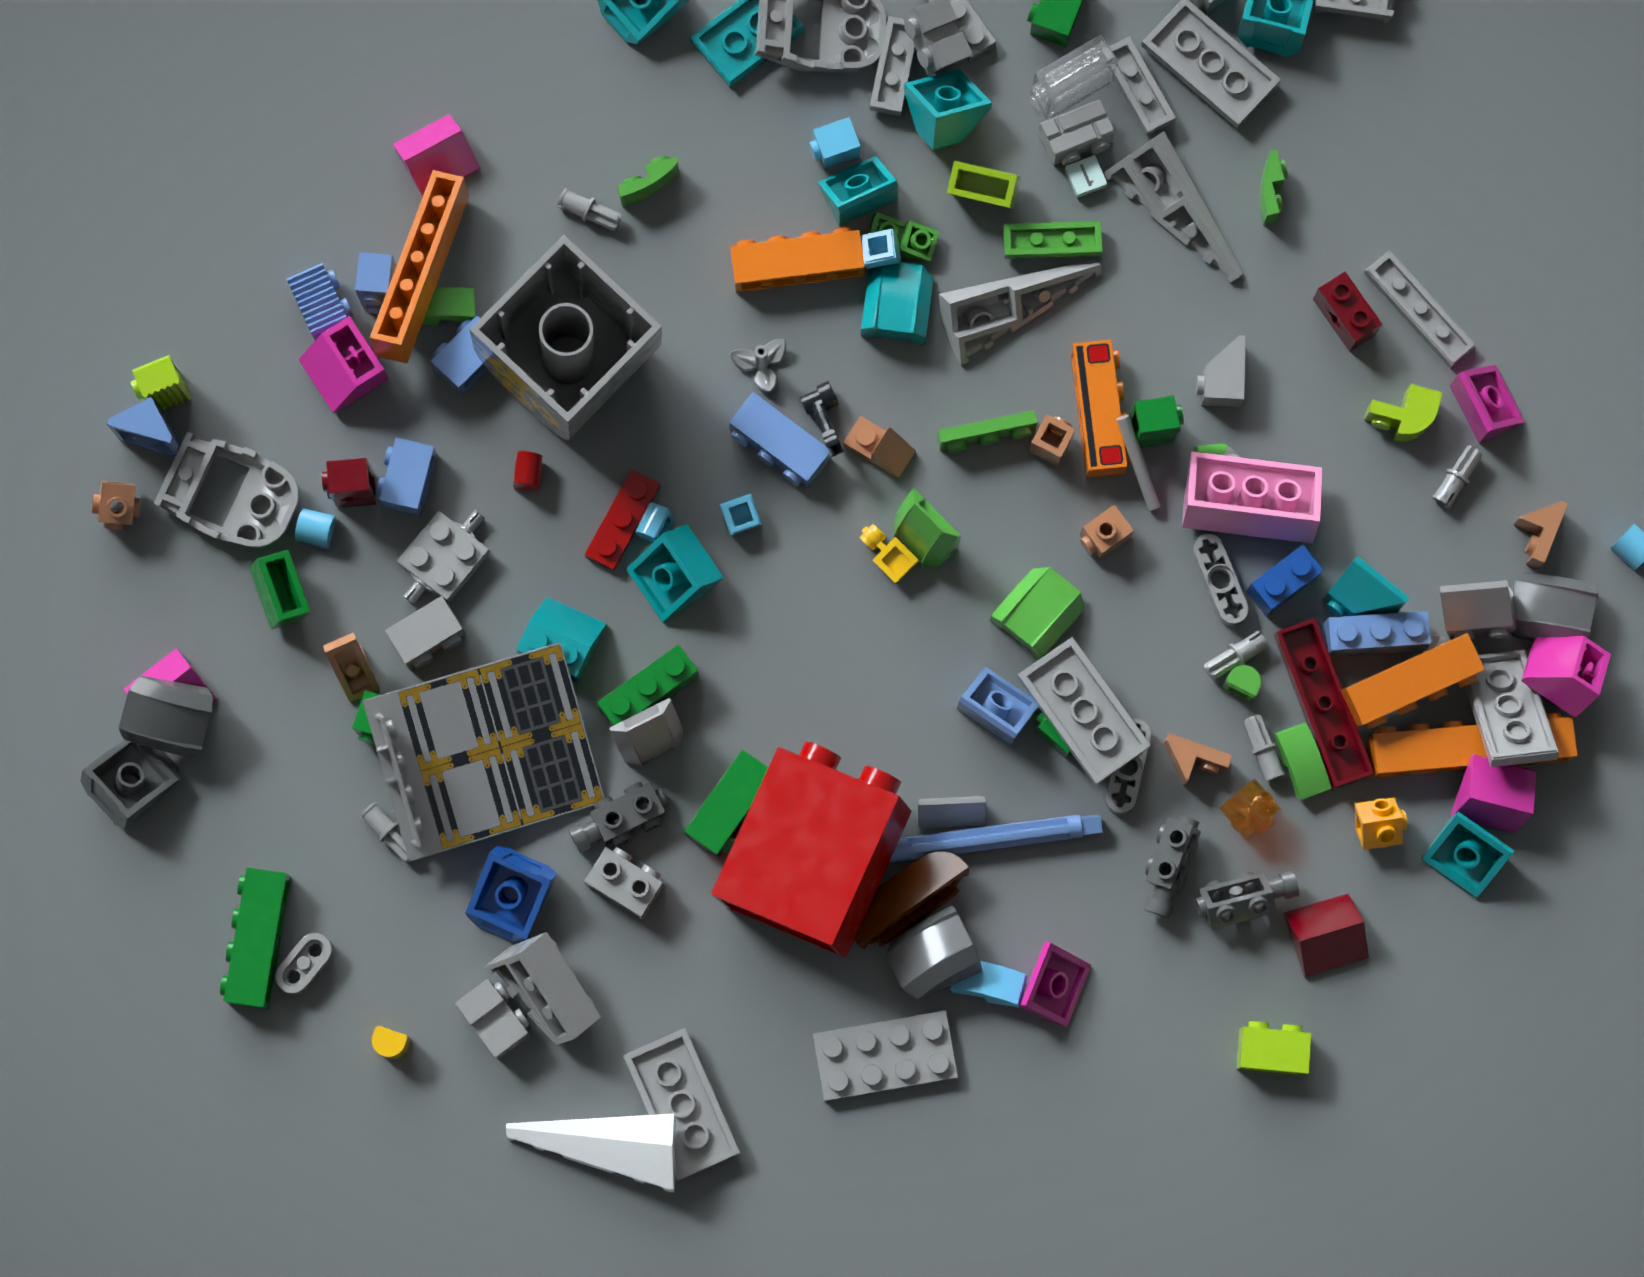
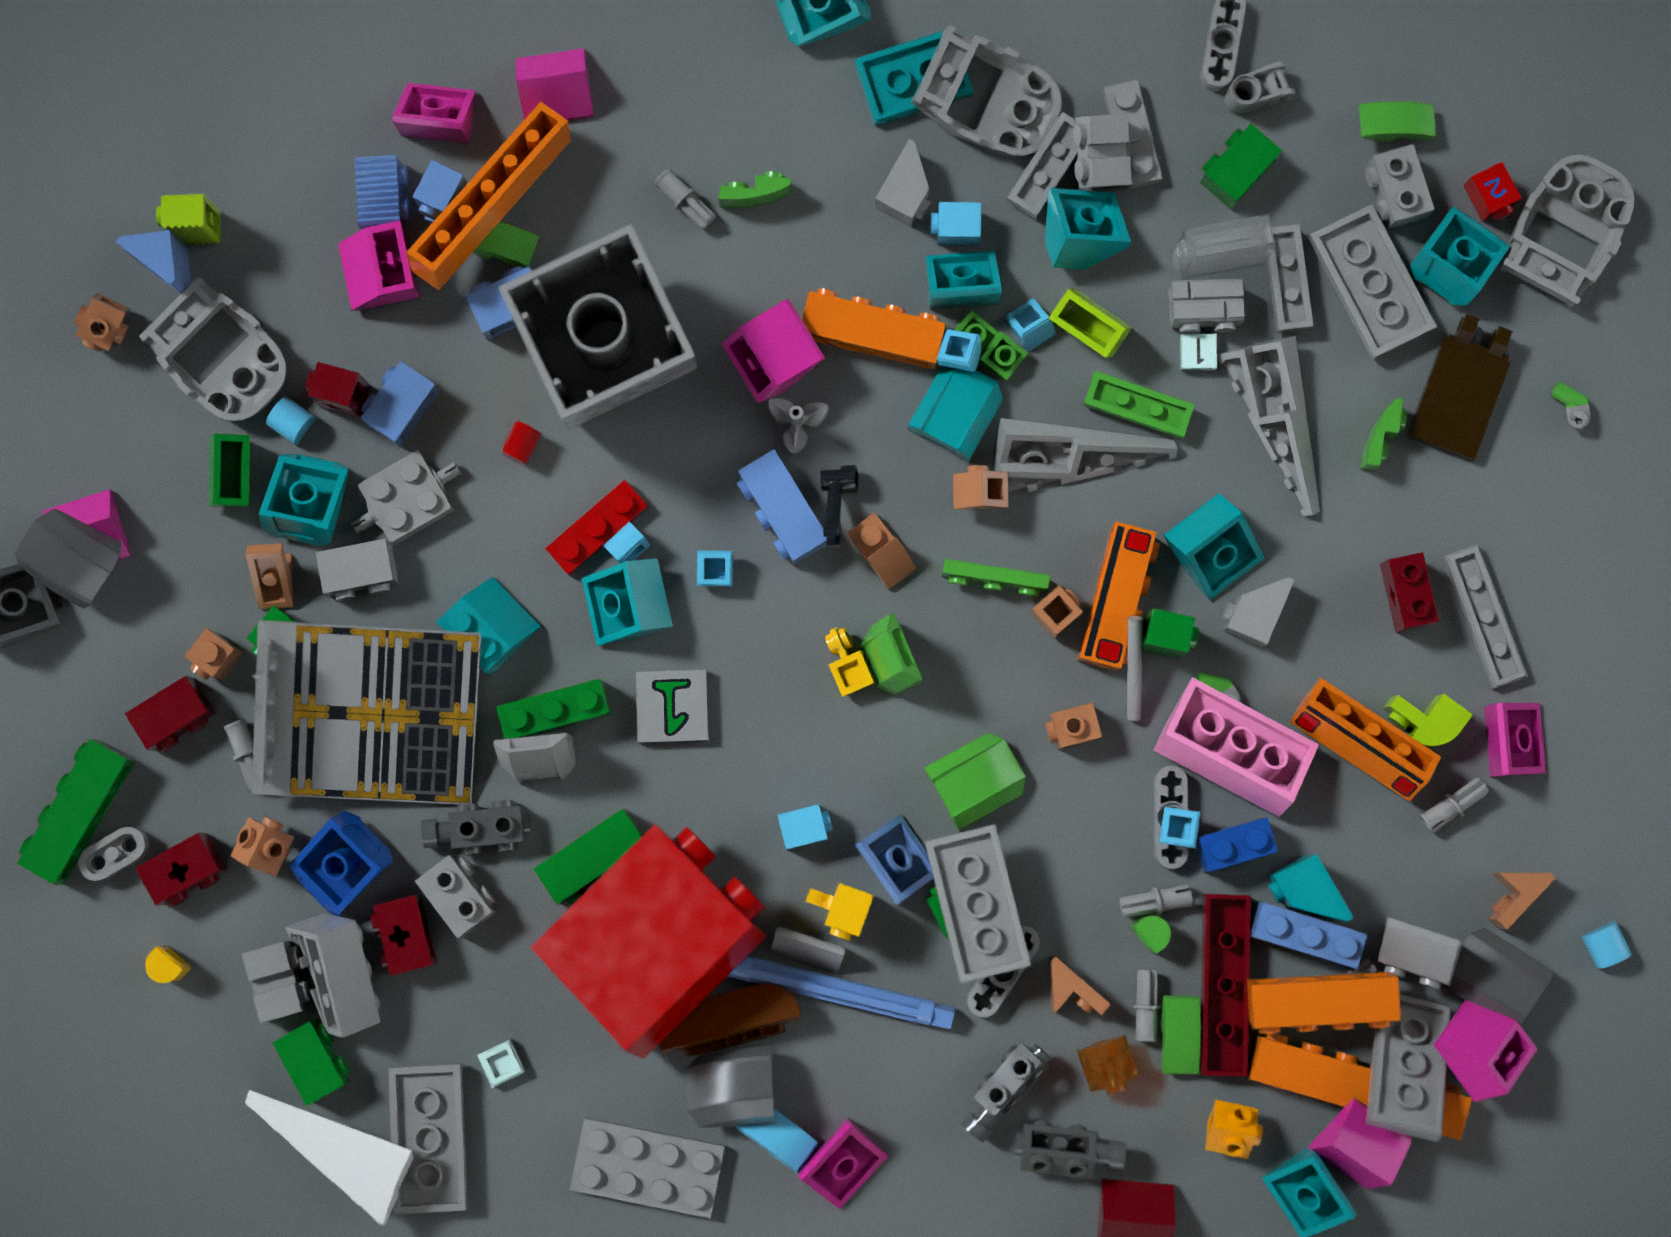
camera: 25 degrees right, 5 degrees up
(309, 822) = (170, 714): none -> dark red brick
(327, 755) = (213, 655): none -> nougat brick
(341, 216) = (435, 112): none -> dark pink slope
(353, 958) = (161, 872): none -> dark red brick
(355, 591) = (303, 499): none -> teal slope
(436, 903) = (262, 845): none -> nougat brick
(553, 1076) = (312, 1061): none -> green piece
(586, 915) = (418, 948): none -> dark red brick
(719, 308) = (773, 351): none -> dark pink slope
(720, 1015) = (501, 1063): none -> light aqua tile
(749, 648) = (672, 706): none -> light grey tile
(779, 130) = (905, 189): none -> light grey slope
(906, 707) = (804, 826): none -> medium azure brick
(932, 206) = (1030, 324): none -> medium azure slope
(945, 360) = (980, 489): none -> nougat brick
(971, 760) = (846, 909): none -> yellow brick
(1165, 334) = (1214, 545): none -> teal slope
(1231, 582) = (1179, 827): none -> medium azure brick
(1323, 126) = (1461, 391): none -> dark brown tile
(1359, 448) = (1365, 739): none -> orange brick
(1424, 101) = (1575, 403): none -> arm

